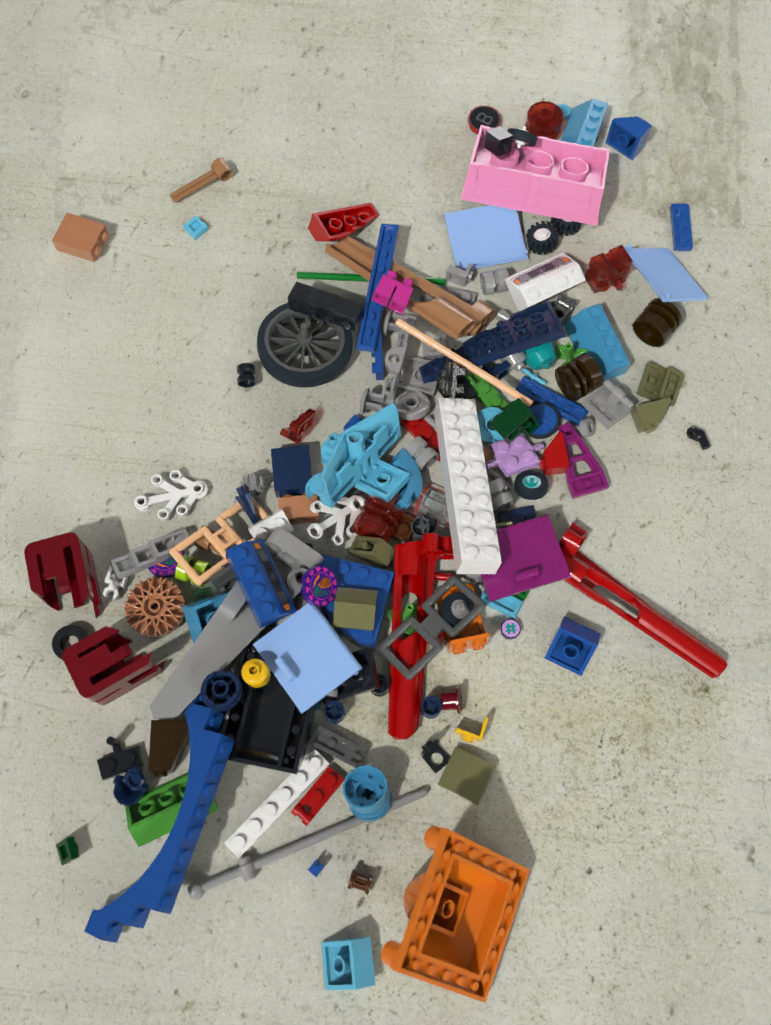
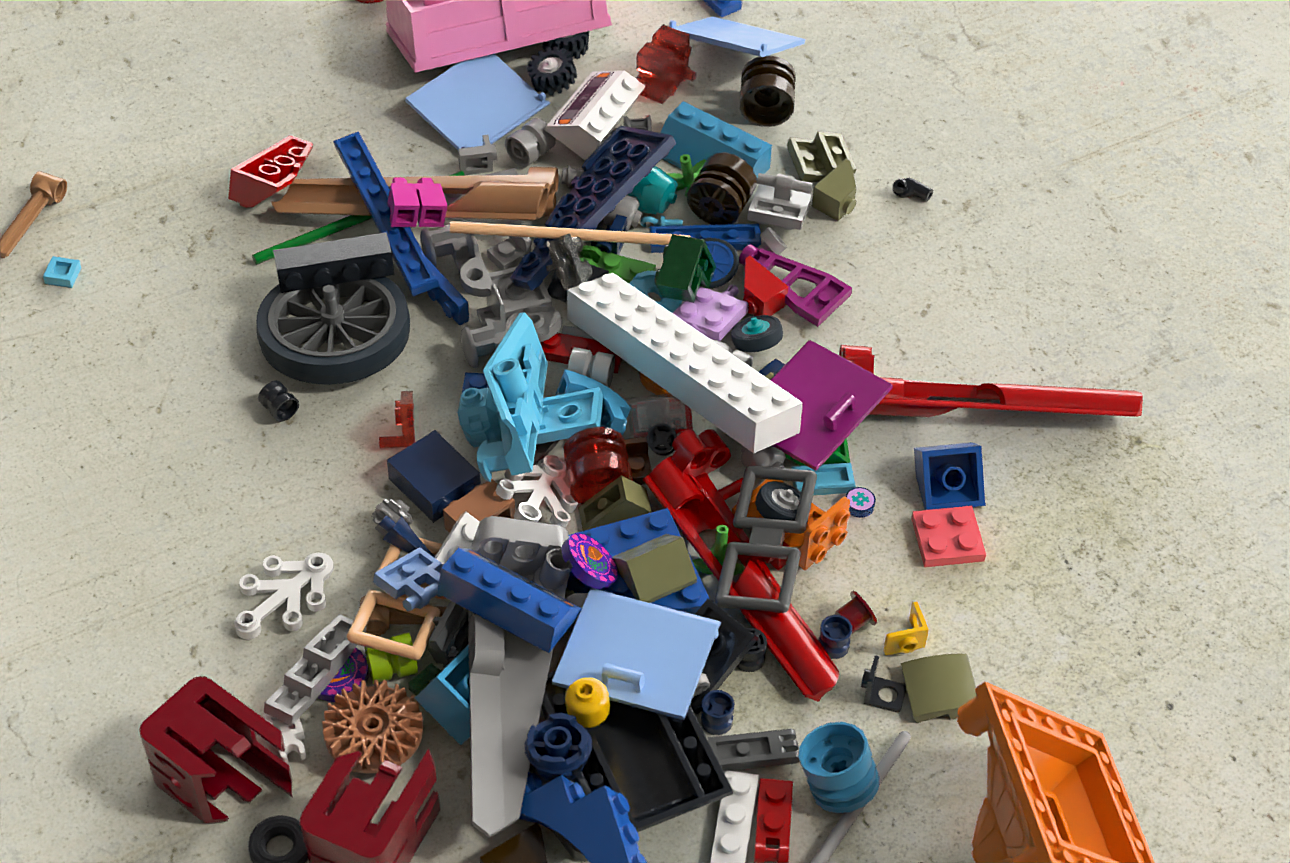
camera: 35 degrees left, 20 degrees down
(224, 530) = (407, 575): none -> medium blue plate
(544, 682) = (948, 536): none -> coral plate

